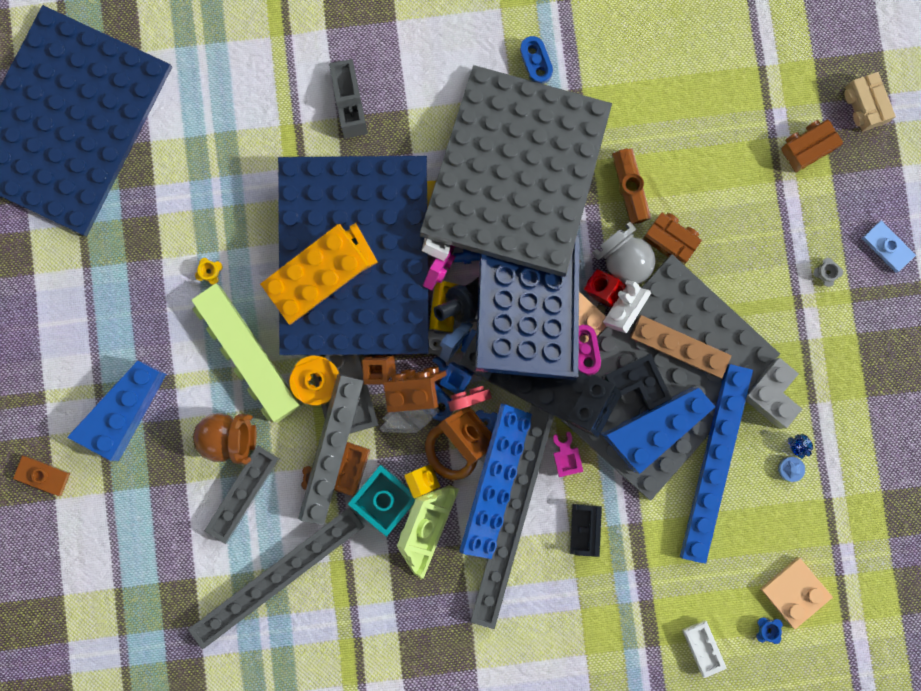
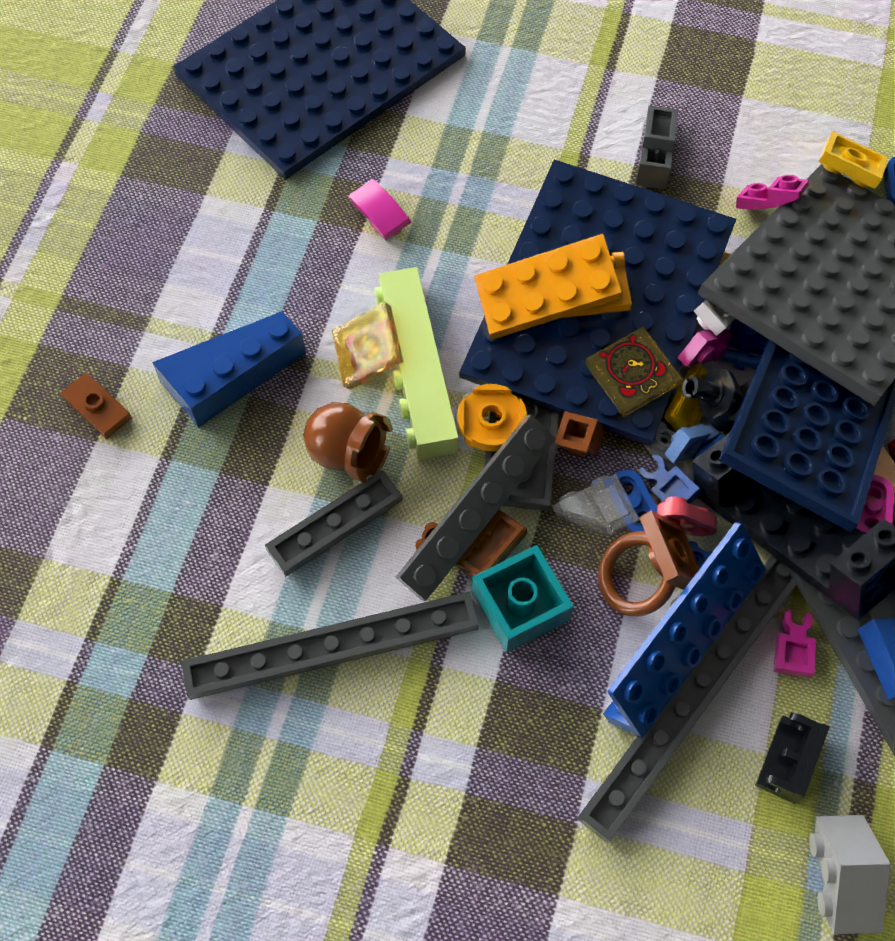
camera: 20 degrees right, 20 degrees down
(167, 239) = (380, 209): none -> dark pink slope
(204, 265) = (411, 252): yellow plate -> none
(207, 357) = (367, 346): none -> clear yellow tile
(397, 311) = (633, 371): none -> clear yellow tile
(412, 390) = (618, 468): dark orange bracket -> none
(422, 481) = (584, 591): yellow plate -> none
(425, 527) = (561, 659): yellowish green wing -> none
(445, 115) = (781, 191): none -> dark pink slope
(495, 57) = (853, 160): none -> yellow plate
(639, 589) = (852, 872): none -> light grey brick

